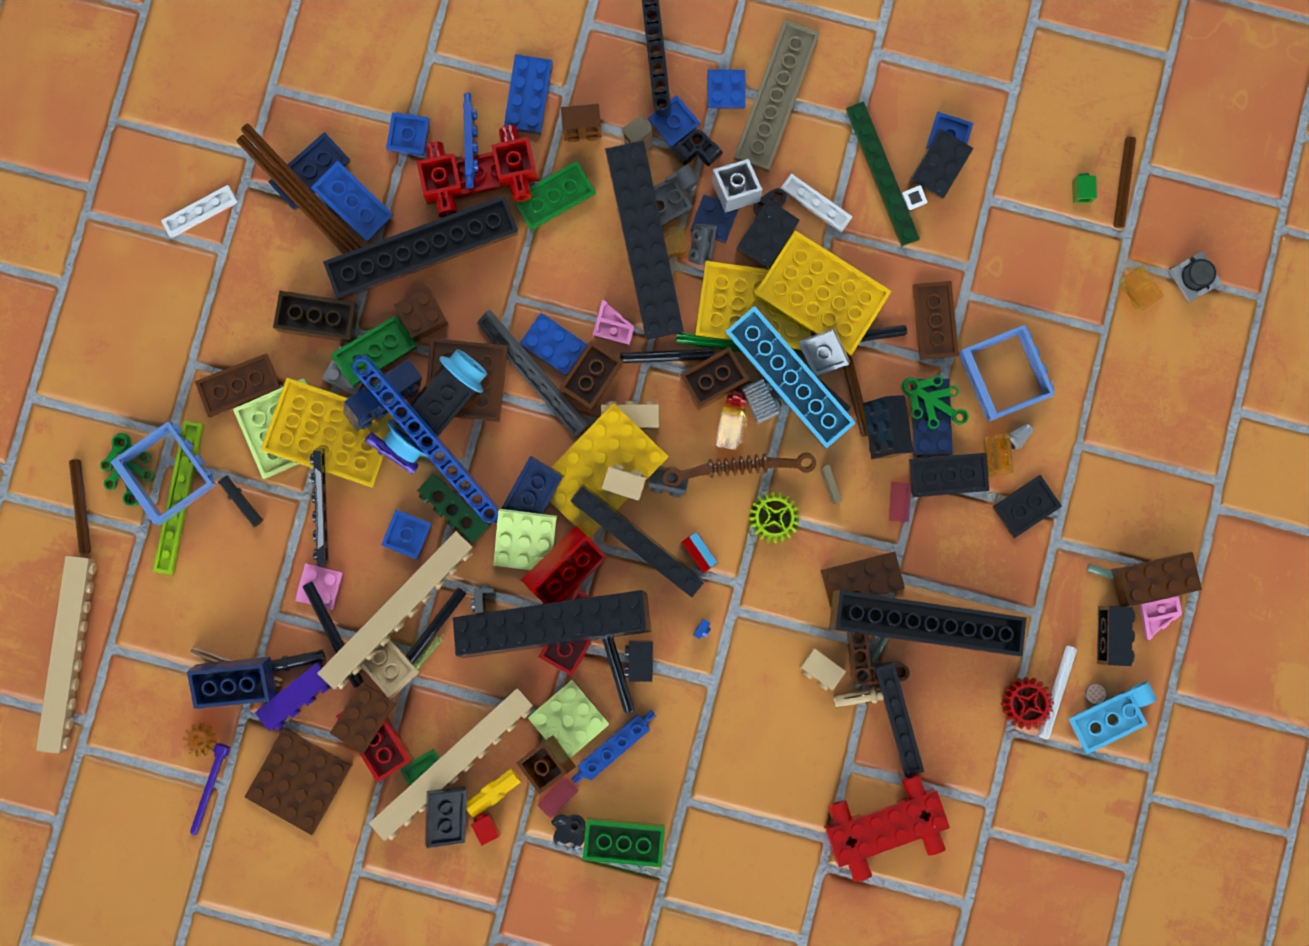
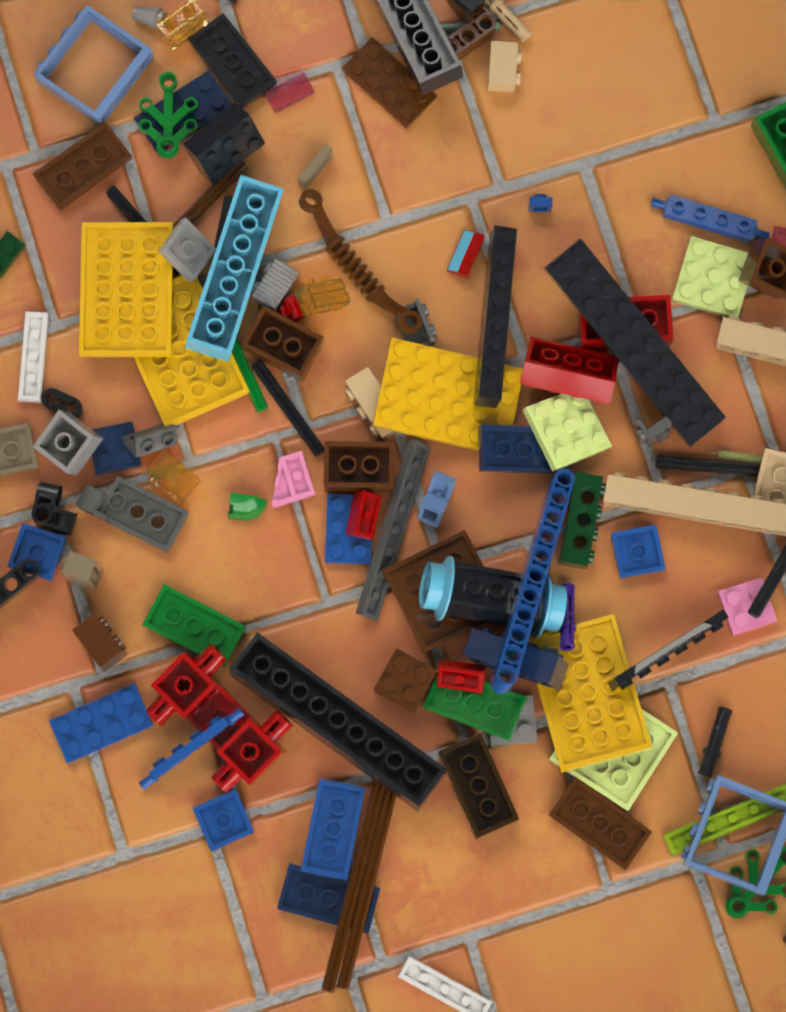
camera: 120 degrees left, 5 degrees down
(398, 352) = (461, 676): none -> red slope
(533, 415) = (436, 499): none -> medium blue brick
(555, 358) = (363, 514): none -> red slope
(615, 282) = (245, 507): none -> green brick
(618, 674) = (640, 251): black axle -> none
(624, 482) = (446, 361): tan brick -> none
(640, 660) = (613, 236): black brick -> none
(644, 239) = (186, 493): black brick -> none
(767, 234) = (99, 381): black brick -> none
(768, 510) = (376, 198): lime gear -> none

